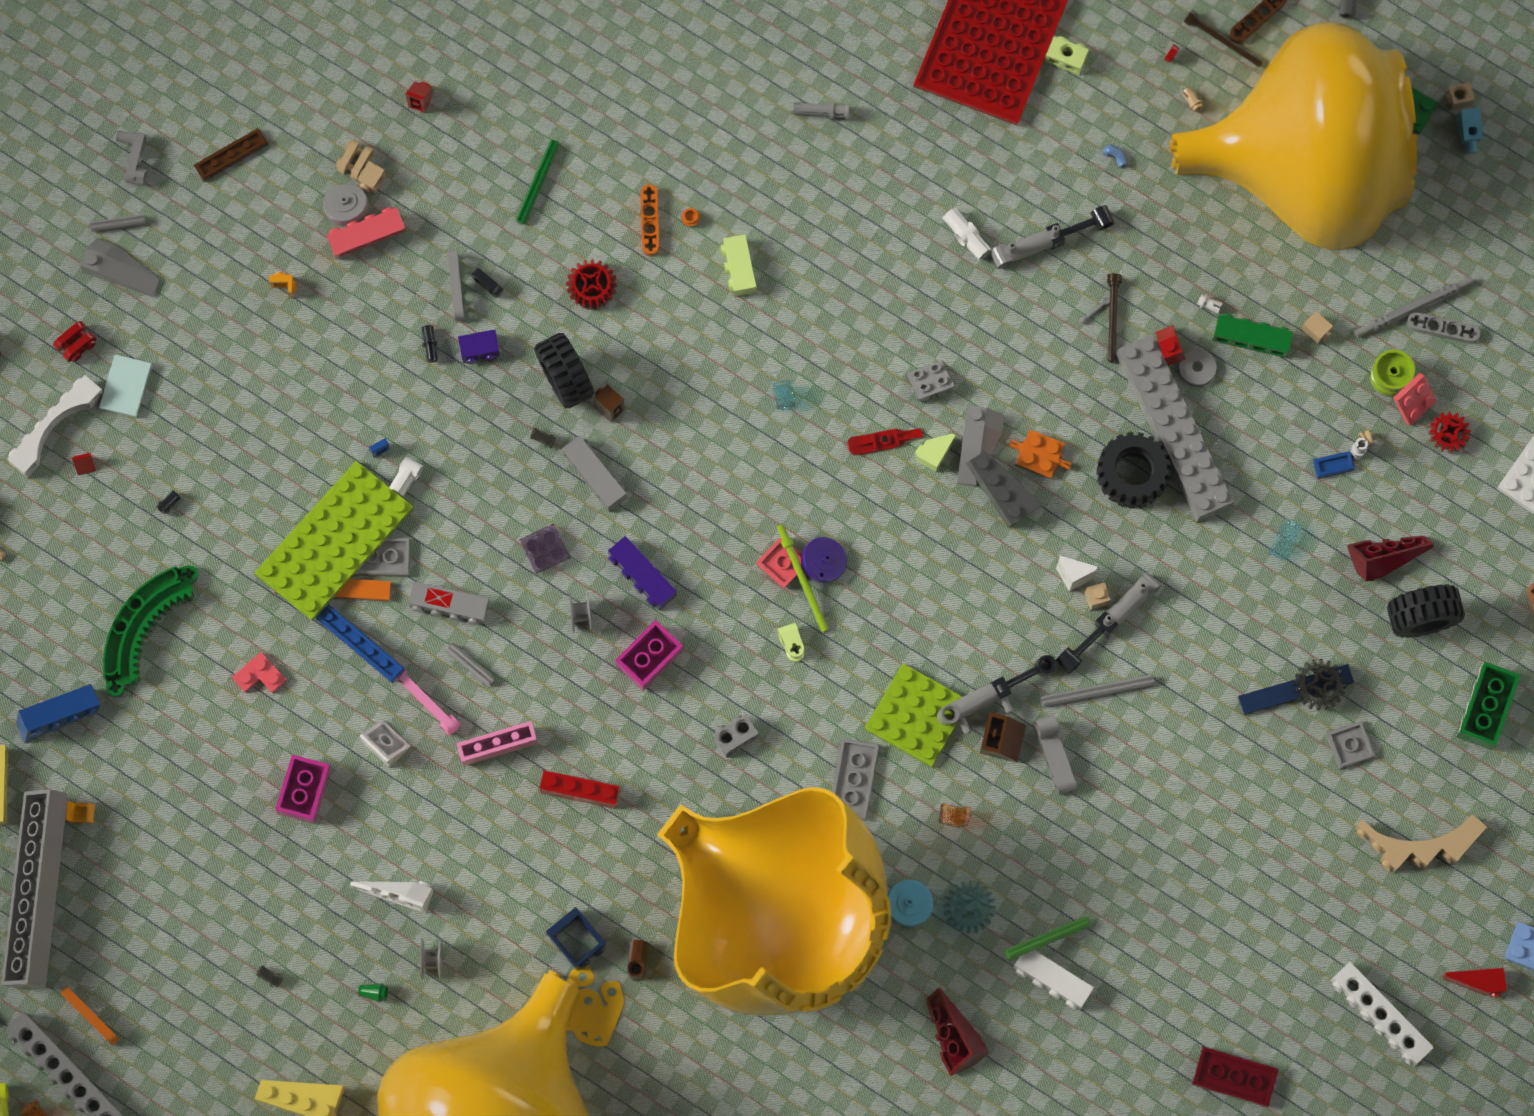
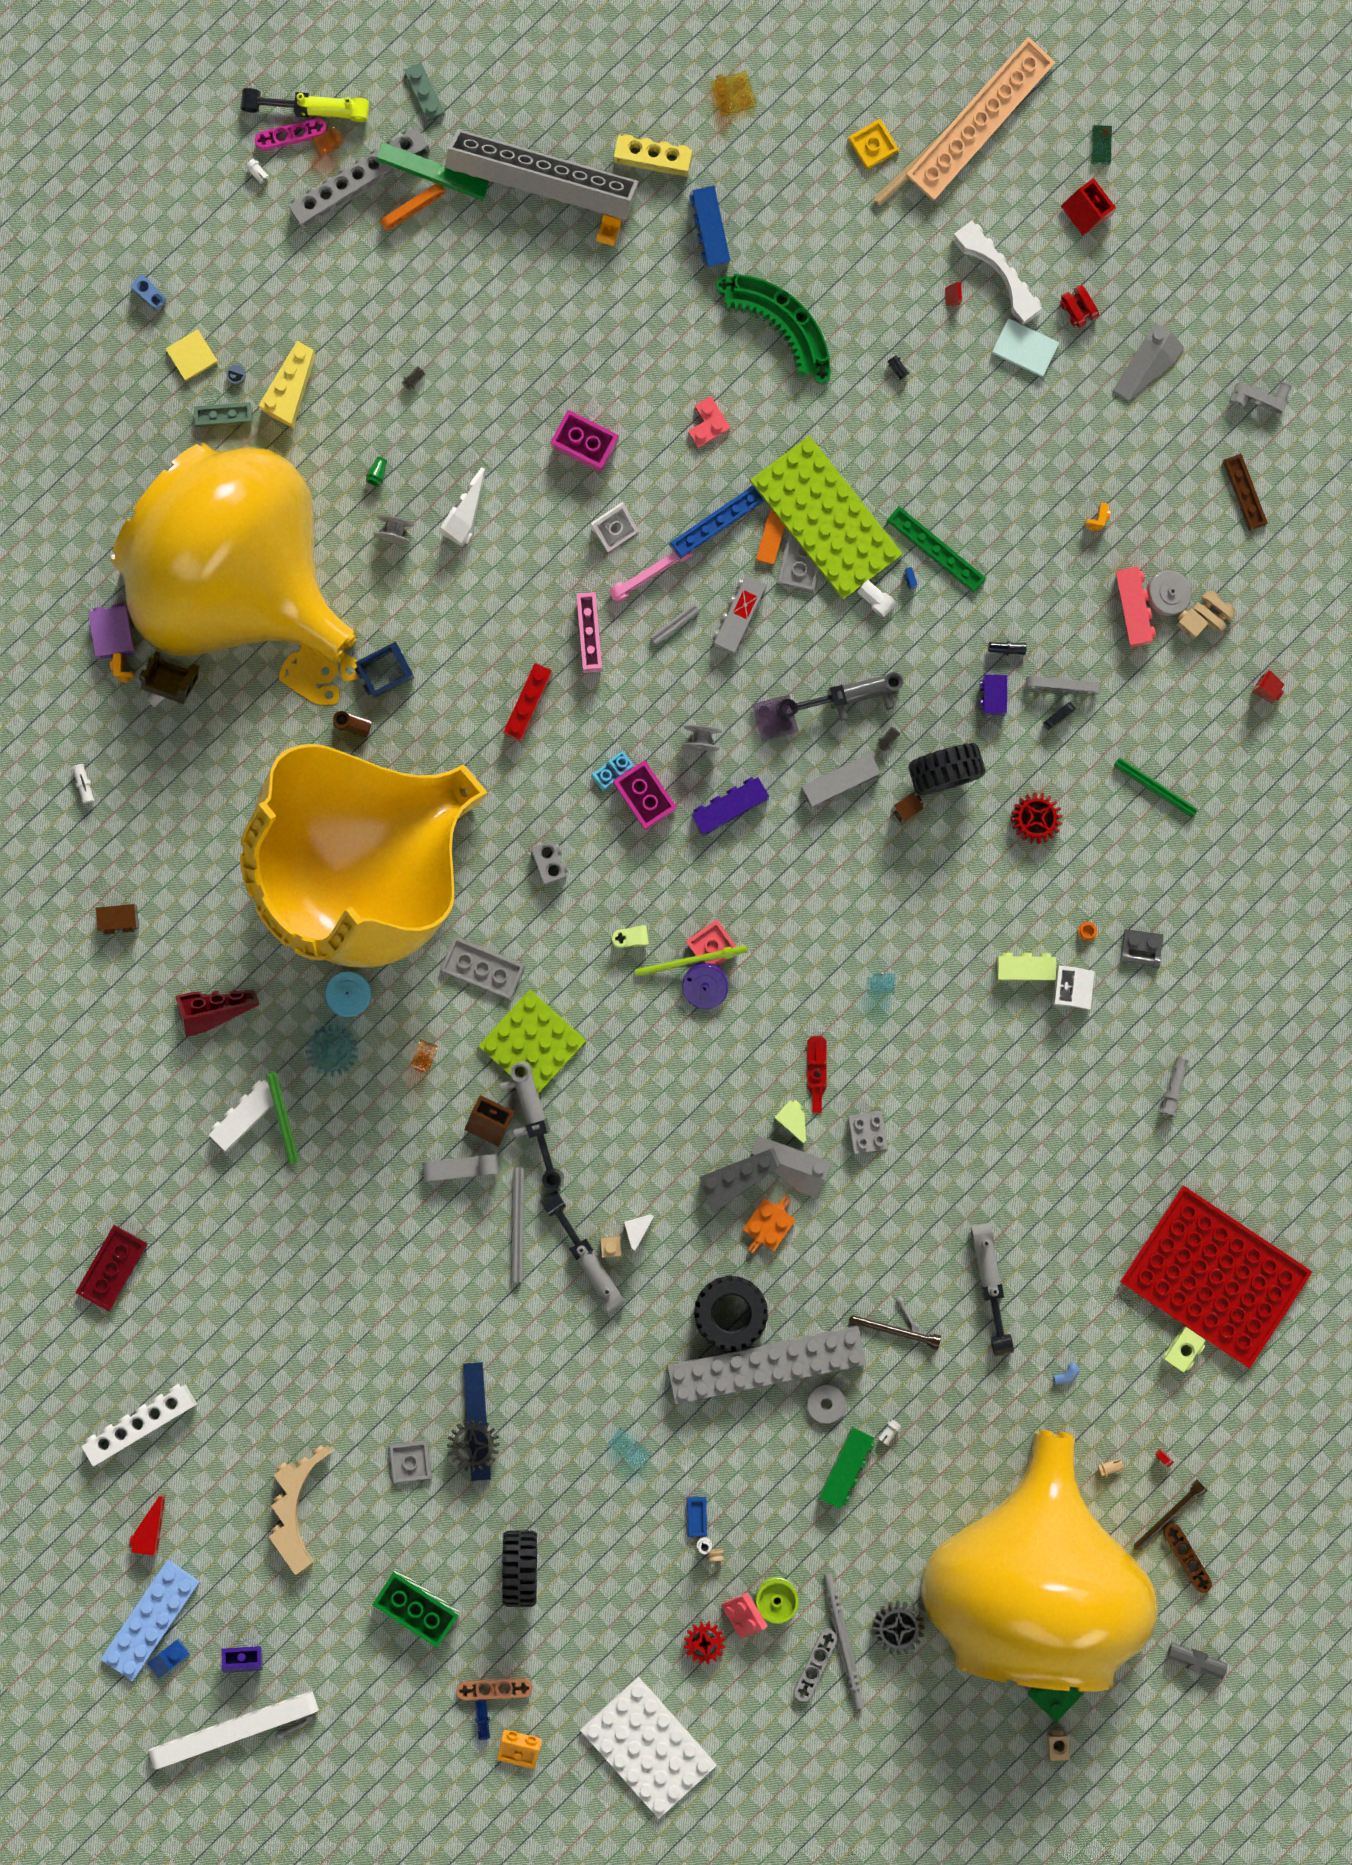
camera: 100 degrees right, 10 degrees up
(50, 1002) = (431, 171): none -> green tile
(117, 223) = (1195, 369): light grey axle -> none
(344, 431) = (936, 549): none -> green tile
(510, 487) = (845, 694): none -> dark grey piece
(629, 694) = (612, 770): none -> medium azure slope
(649, 220) = (1092, 892): orange beam -> none
(690, 167) = (1142, 942): none -> dark grey plate
(749, 219) = (1073, 987): none -> white slope
(966, 234) = (1013, 1203): white piece -> none
(1170, 345) = (853, 1380): red slope -> none
(1317, 328) = (840, 1535): tan brick -> none
(1382, 558) = (590, 1540): dark red wedge -> none
(1402, 254) = (907, 1627): none -> dark grey gear
(1469, 121) = (1027, 1746): medium azure torso -> none

